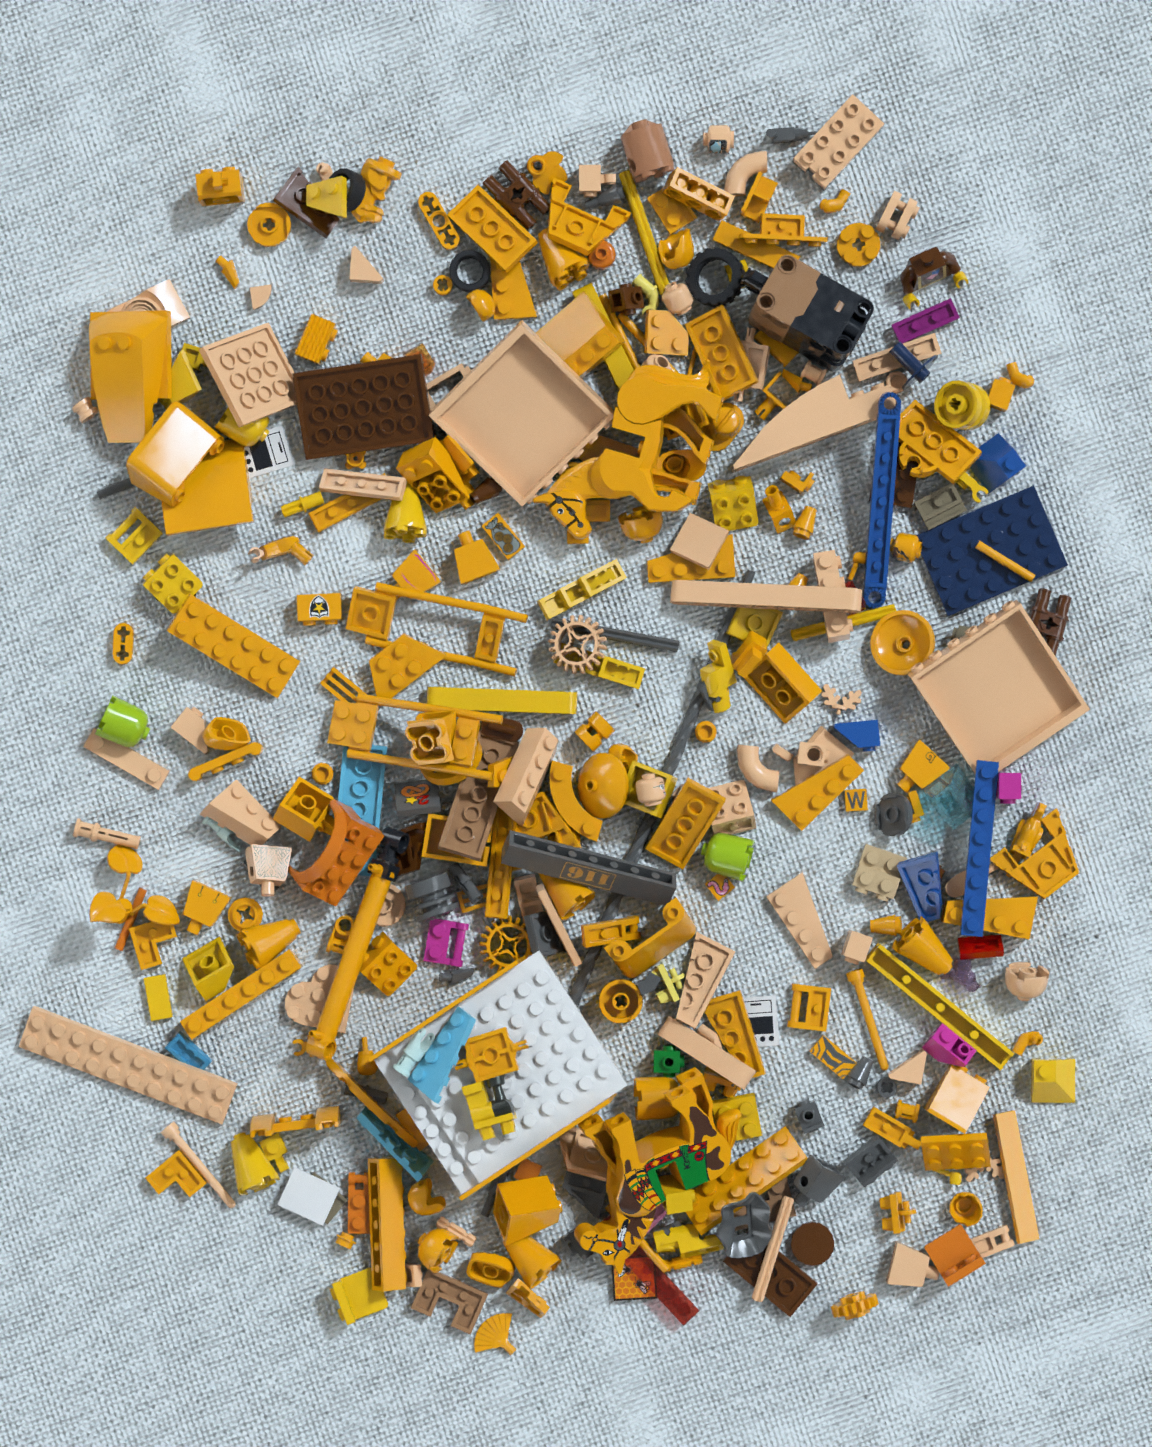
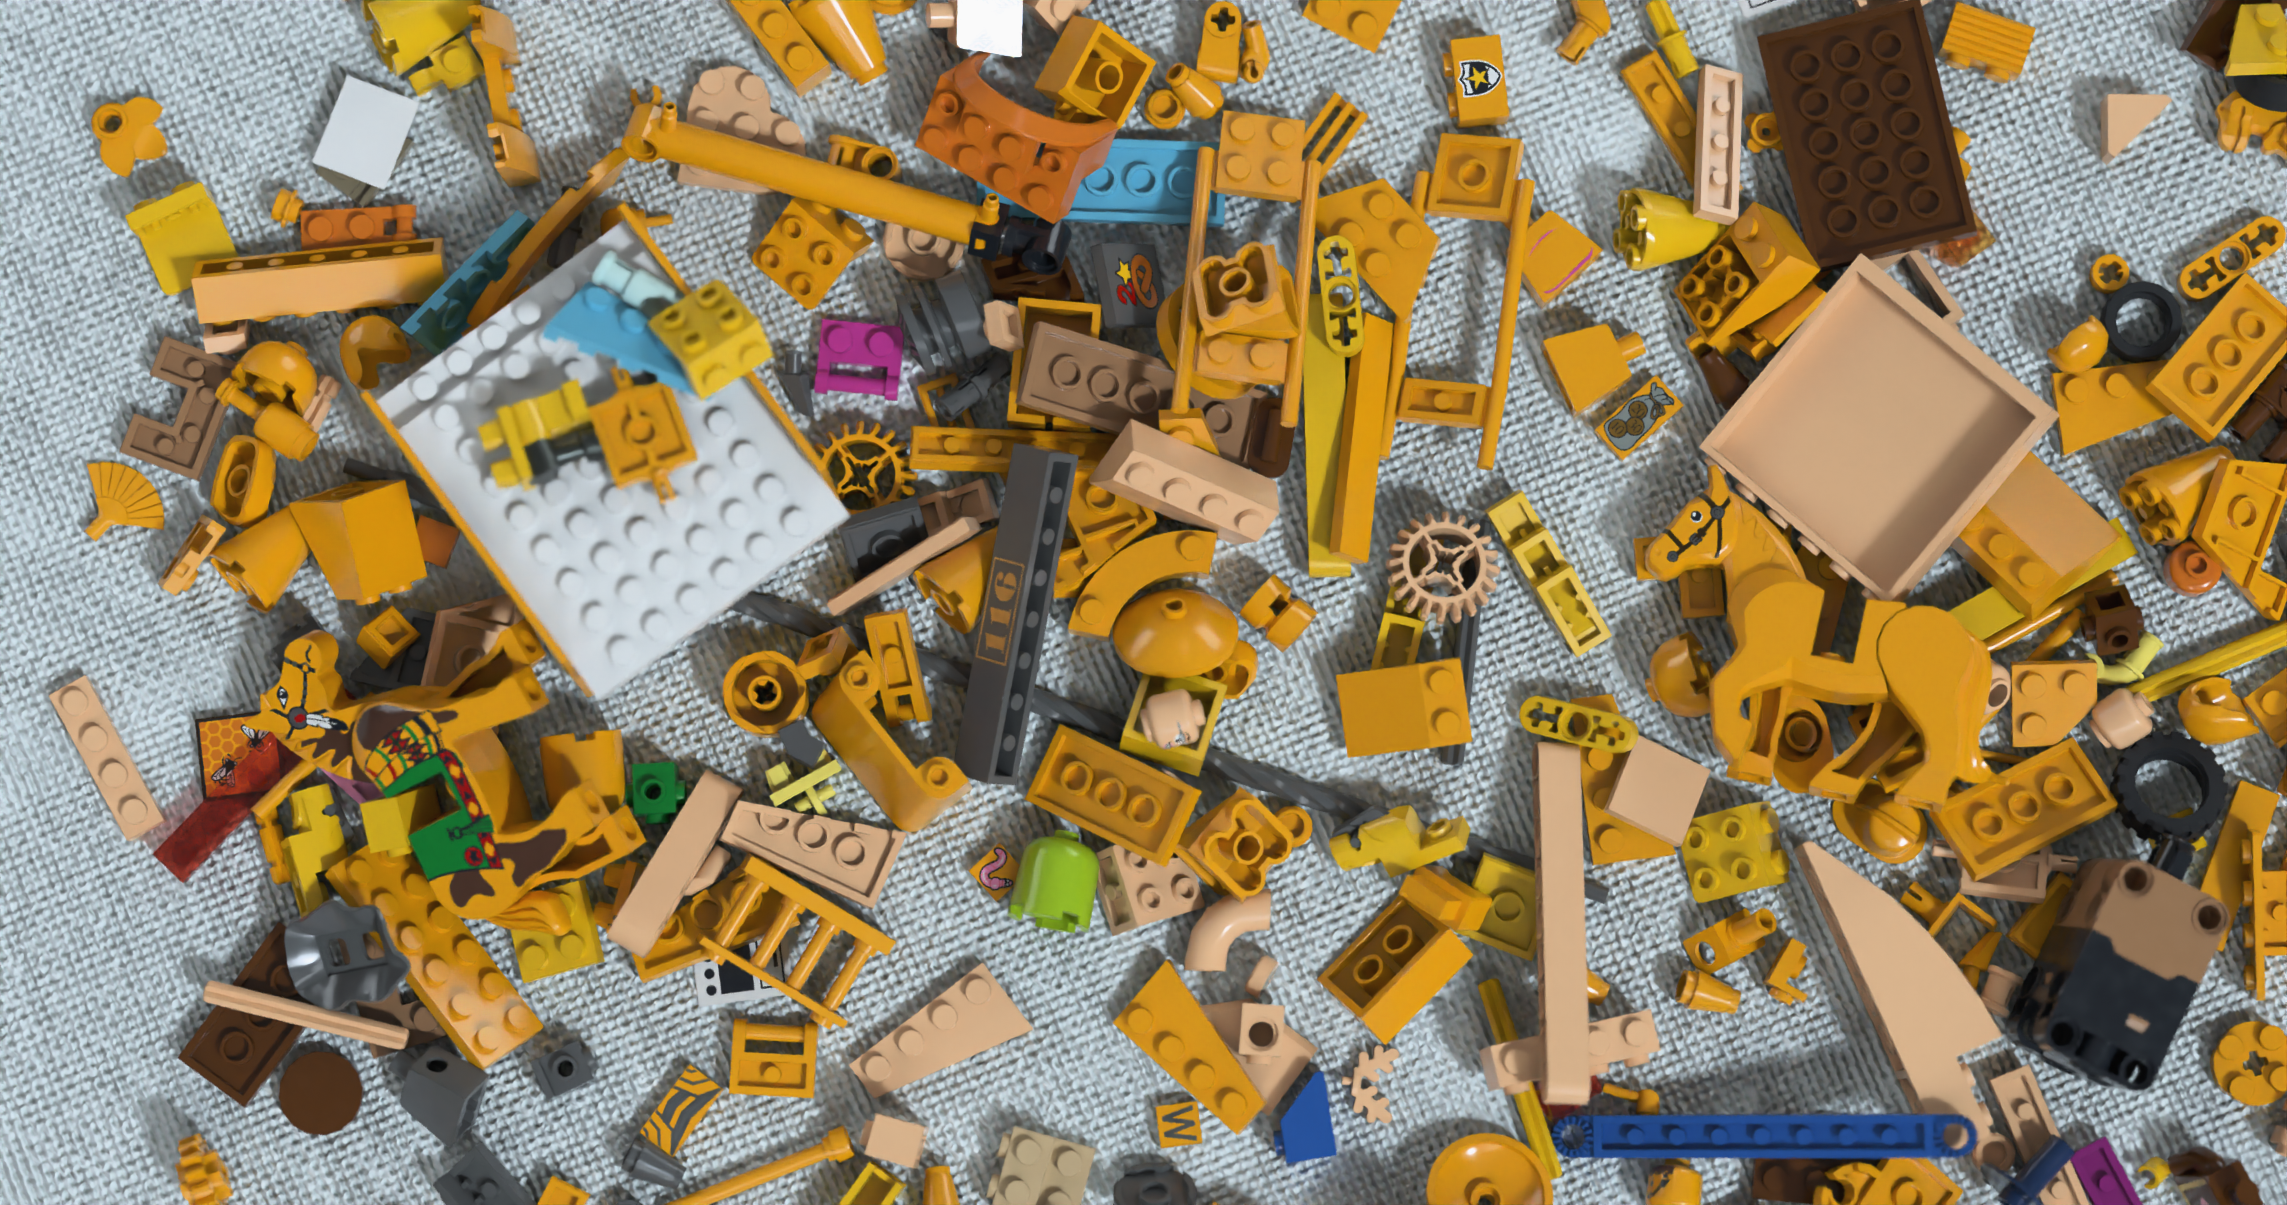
camera: 90 degrees right, 5 degrees down
(294, 743) = (1220, 50): none -> light orange piece
(296, 723) = (1256, 52): none -> light orange arm
(302, 1320) = (133, 138): none -> light orange plate
(315, 756) = (1195, 91): none -> light orange cone
(415, 694) = (1333, 326): none -> yellow beam
(437, 865) = (1003, 326): none -> light nougat plate
(444, 1016) = (712, 337): none -> yellow bracket
(462, 1251) = (273, 424): none -> light orange piece
(506, 682) = (1361, 443): none -> light orange tile
(578, 1197) = (387, 637): none -> light orange slope
(602, 967) = (826, 654): none -> light orange bracket
(631, 1347) = (107, 758): none -> light nougat plate
(648, 668) = (1404, 707): none -> light orange slope
(664, 588) = (1608, 720): none -> yellow beam
(715, 761) = (1235, 845): none -> light orange piece
(729, 991) = (795, 901): none -> light orange fence

